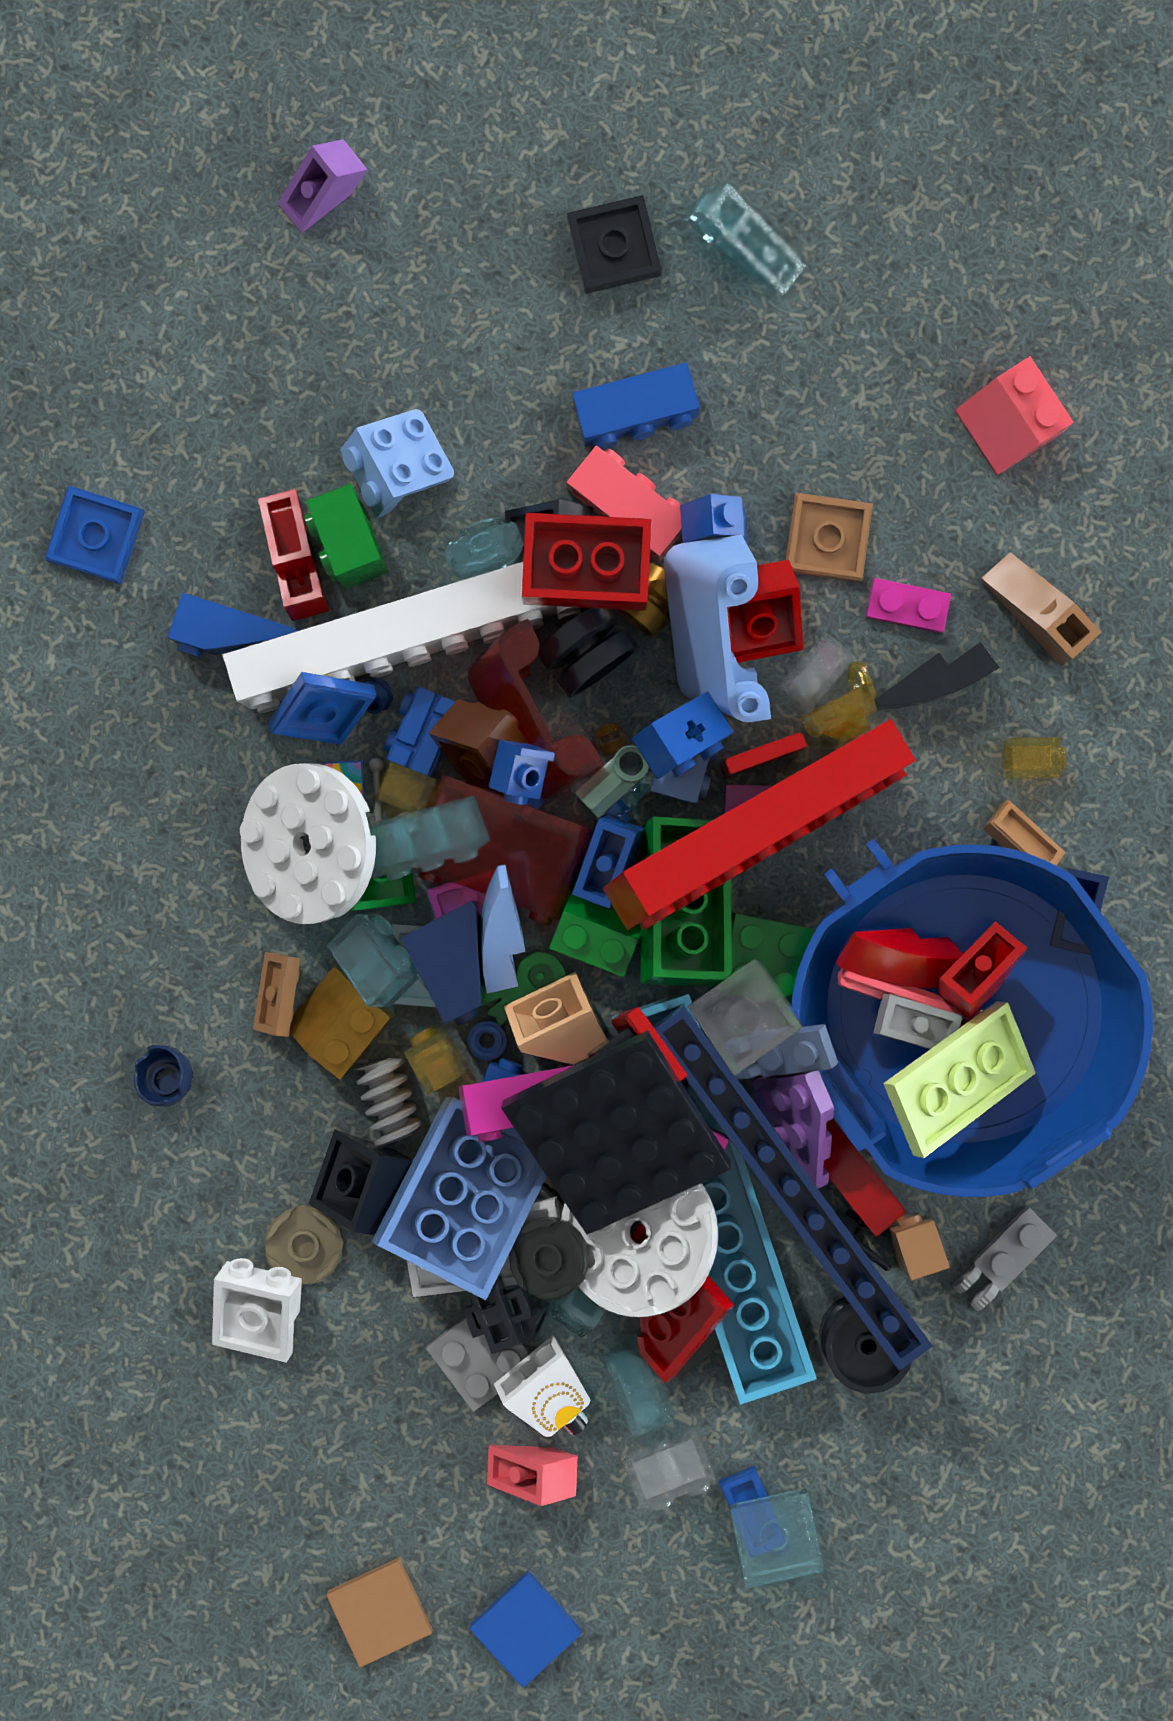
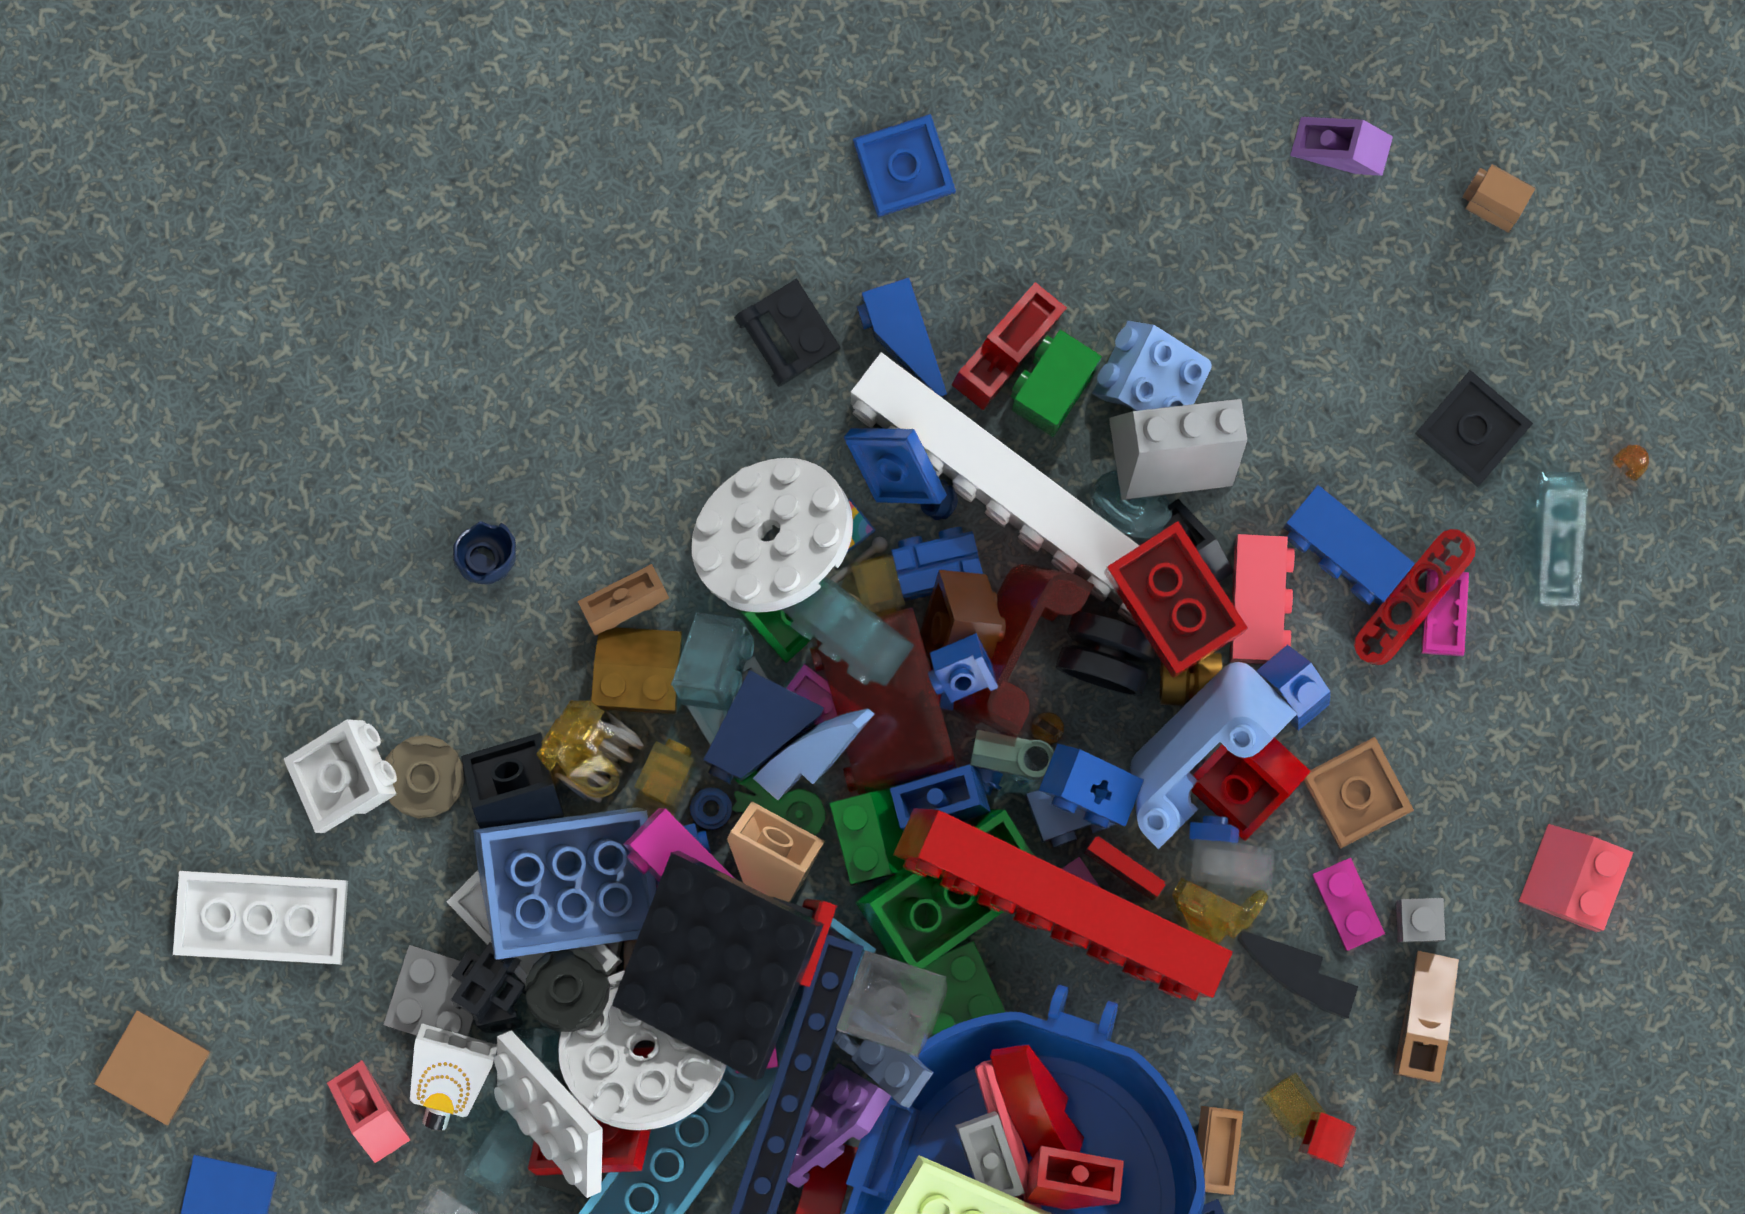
camera: 50 degrees right, 5 degrees down
(163, 705) = (799, 325): none -> black plate
(322, 1449) = (260, 917): none -> white plate
(374, 1118) = (577, 755): none -> clear yellow piece
(449, 89) = (1497, 197): none -> medium nougat brick
(466, 478) = (1178, 448): none -> light grey slope
(637, 1344) = (548, 1114): none -> white plate
(706, 384) = (1409, 592): none -> red beam
(726, 137) = (1634, 458): none -> clear orange hinge
(739, 370) = (1446, 624): none -> dark pink plate
(781, 666) = (1214, 829): none -> blue plate
(962, 558) = (1420, 920): none -> light grey brick
(1082, 751) = (1327, 1139): none -> red slope

